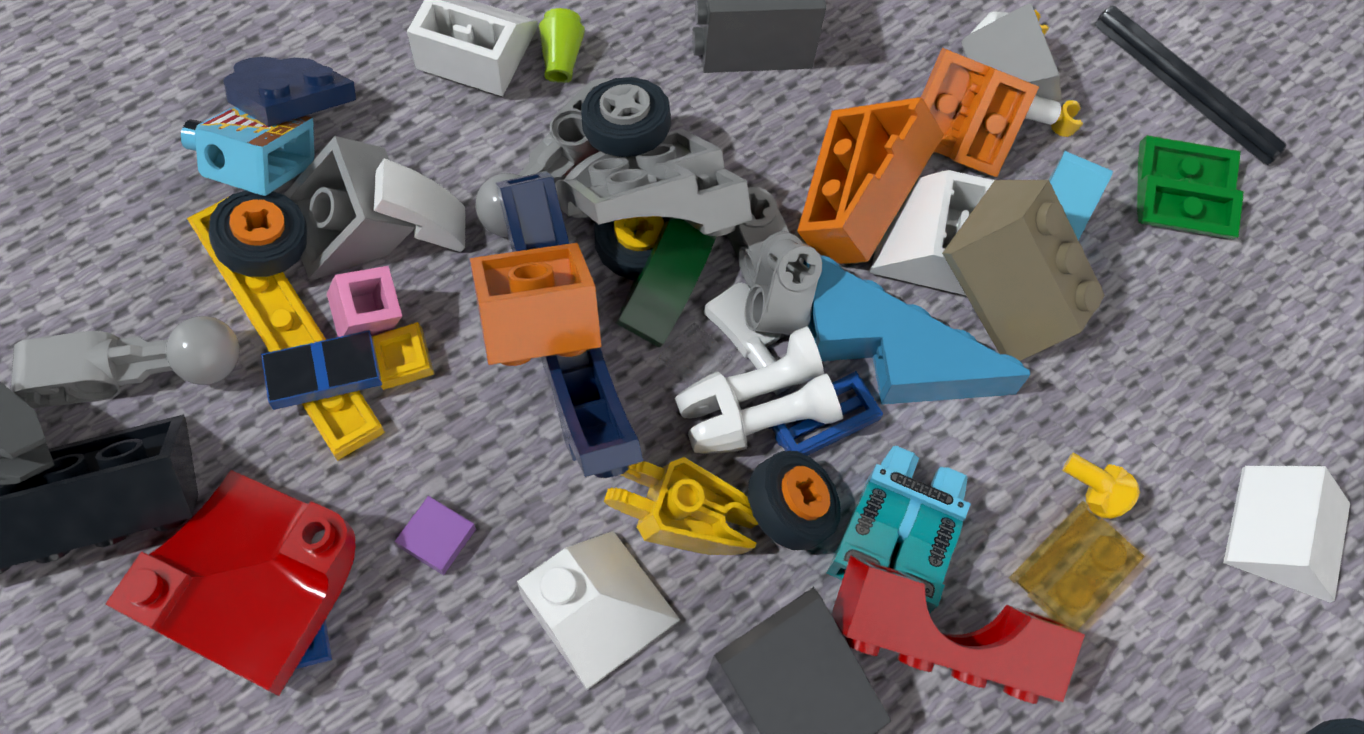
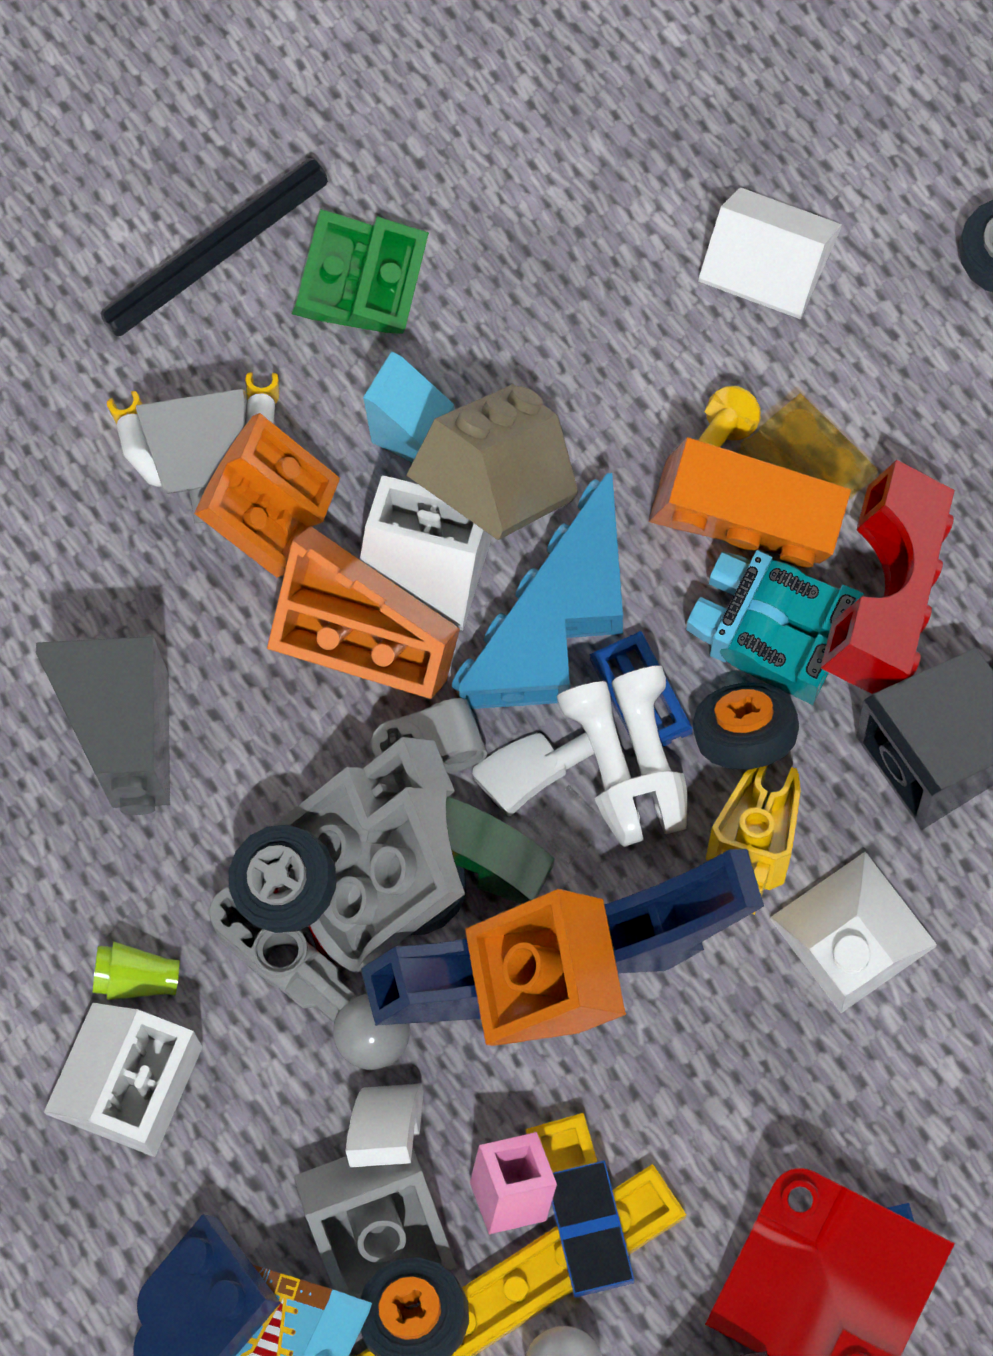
camera: 75 degrees left, 5 degrees up
(435, 535) = (776, 1101): medium lavender tile -> none
(783, 288) = (499, 720): light grey piece -> none
(1017, 496) = (749, 503): none -> orange wedge

